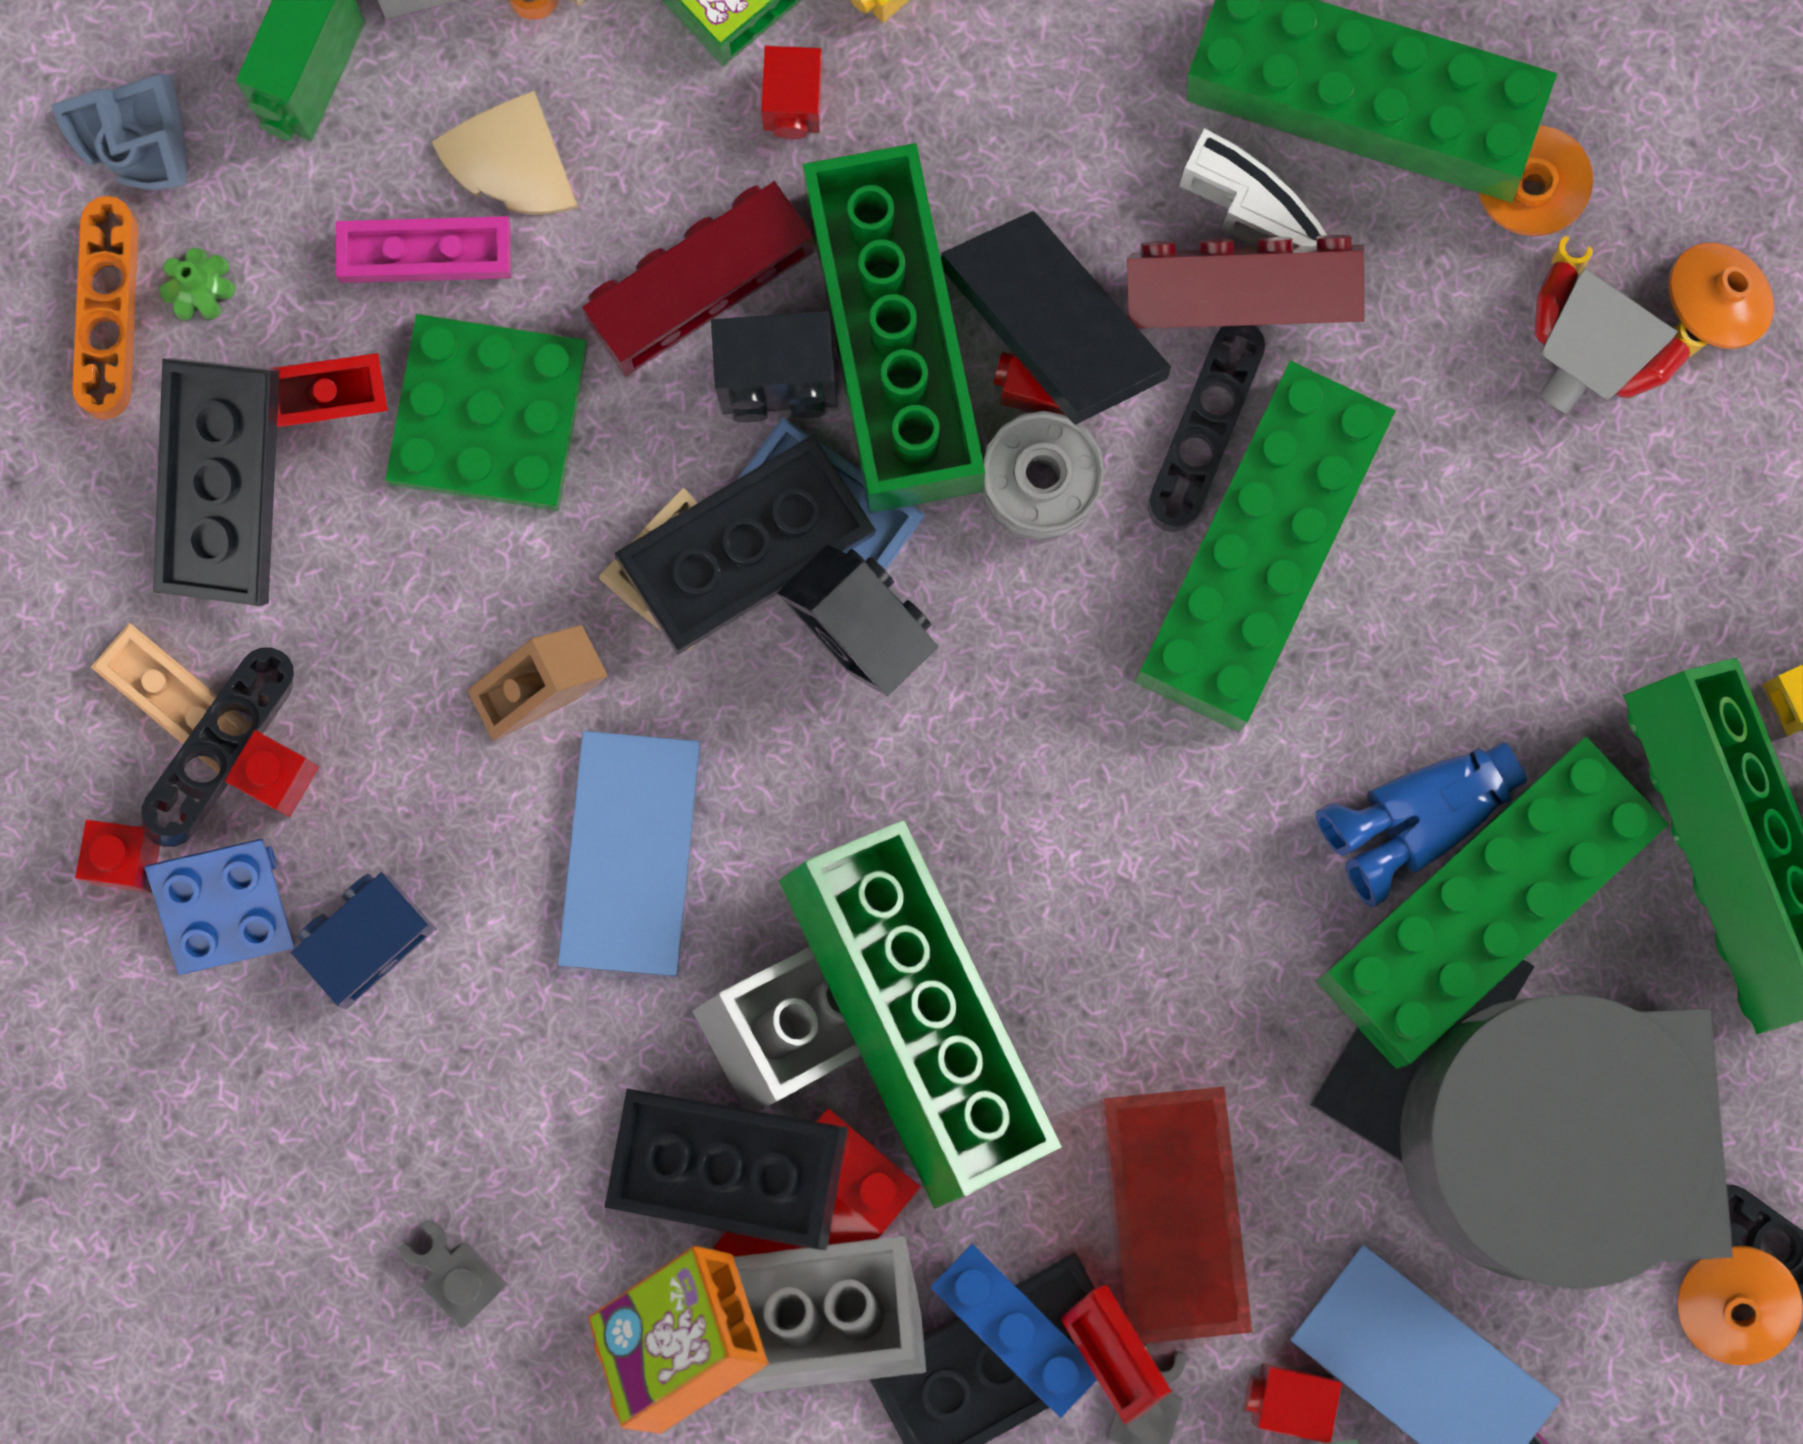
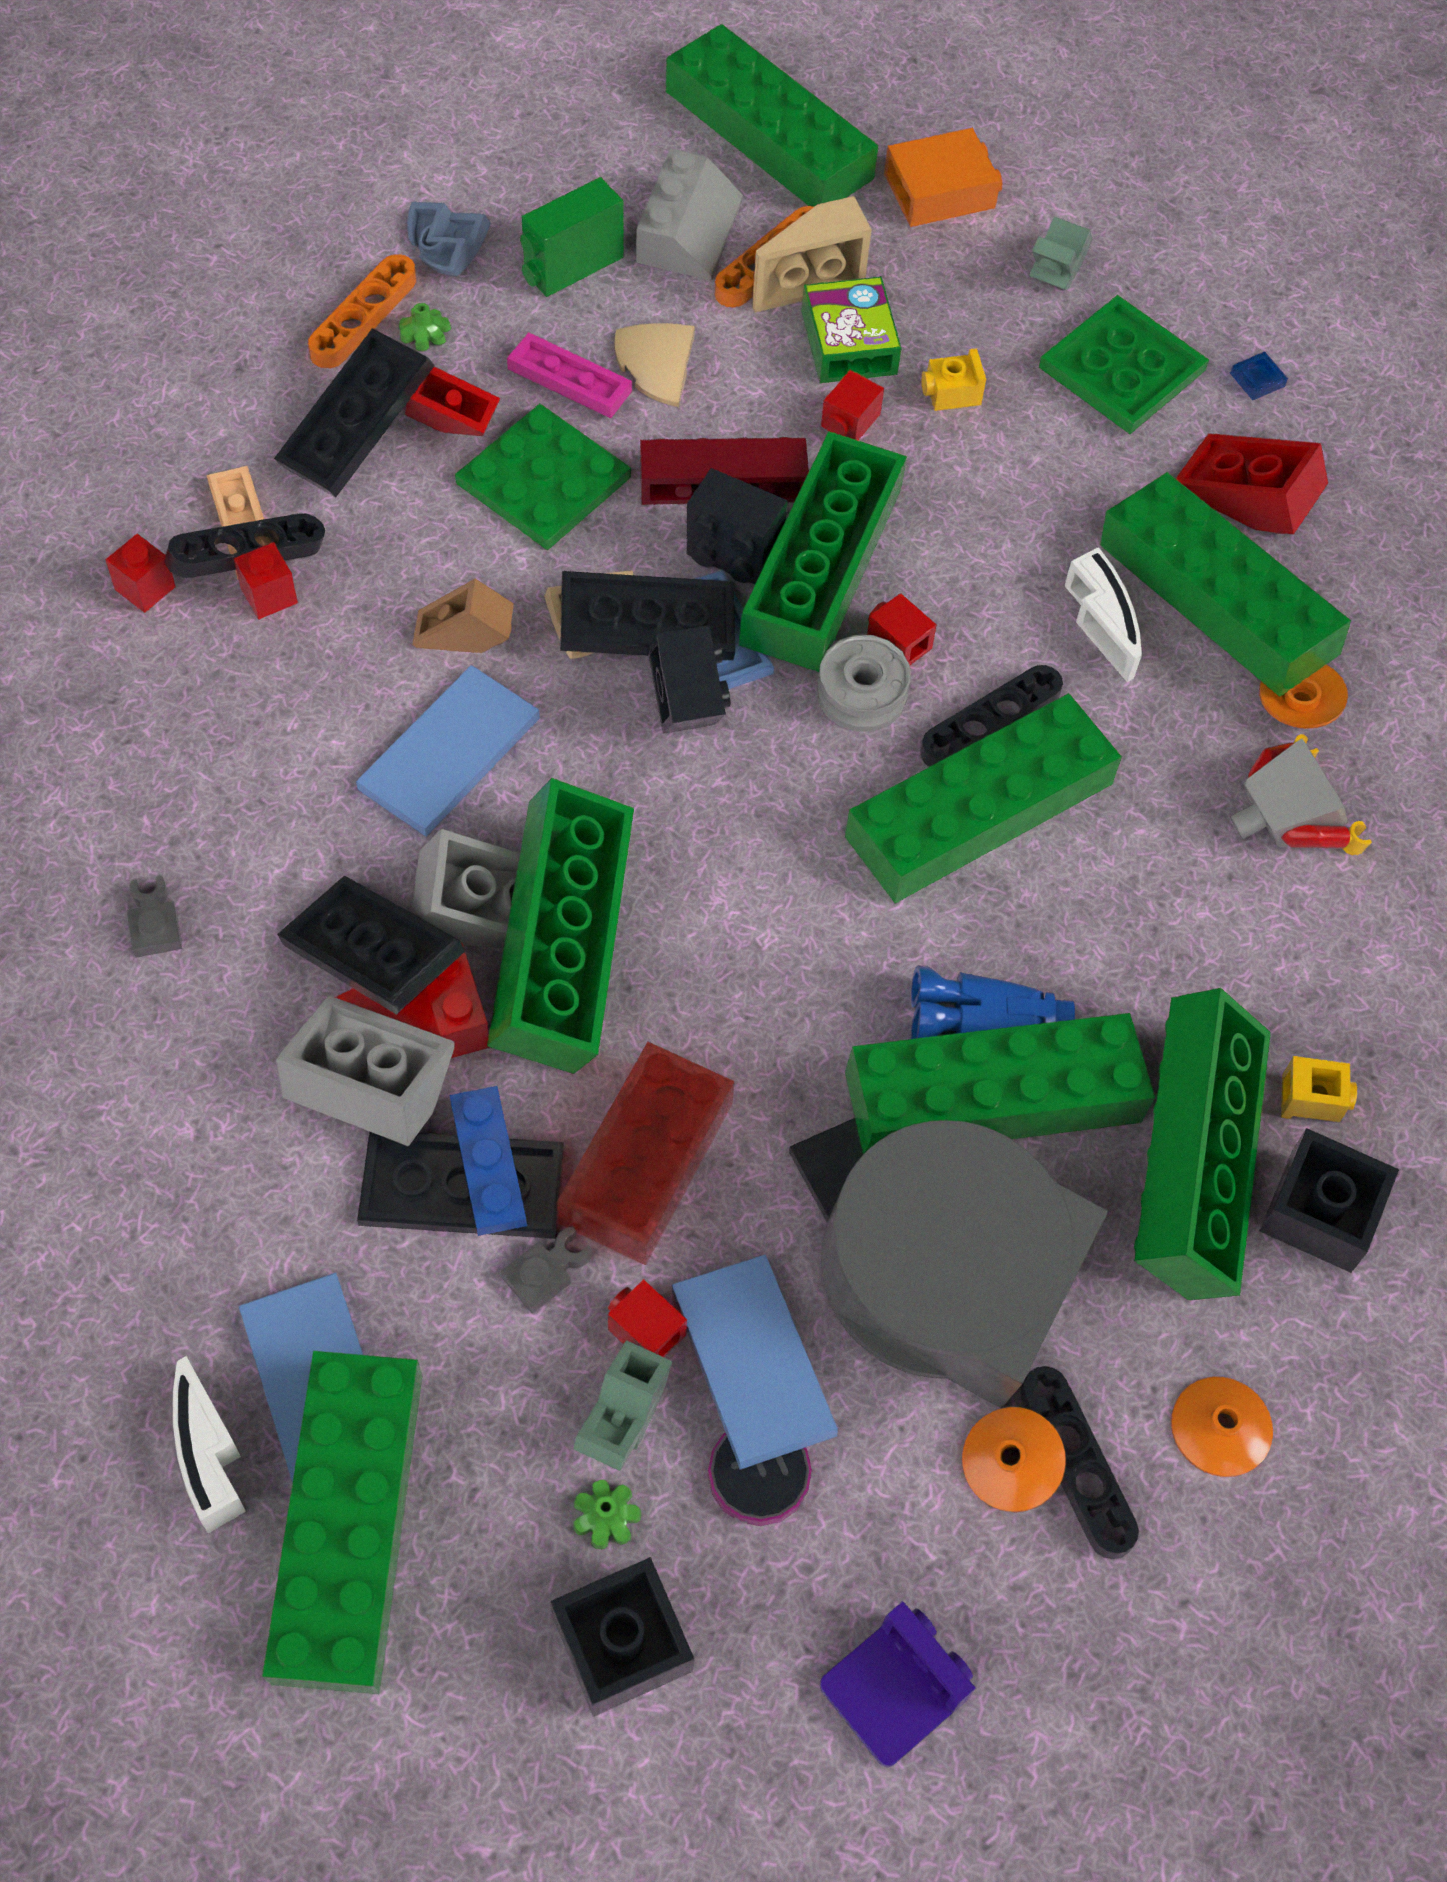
camera: 30 degrees right, 20 degrees down
(220, 906) = (179, 634): hinge -> none
(361, 938) = (248, 698): dark blue brick -> none
(677, 1340) = (259, 1017): brick -> none
(1054, 317) = (931, 595): black tile -> none
(1115, 1354) = (542, 1203): red tile -> none
(1247, 284) = (1070, 641): dark red brick -> none
(1720, 295) = (1393, 825): orange dish -> none

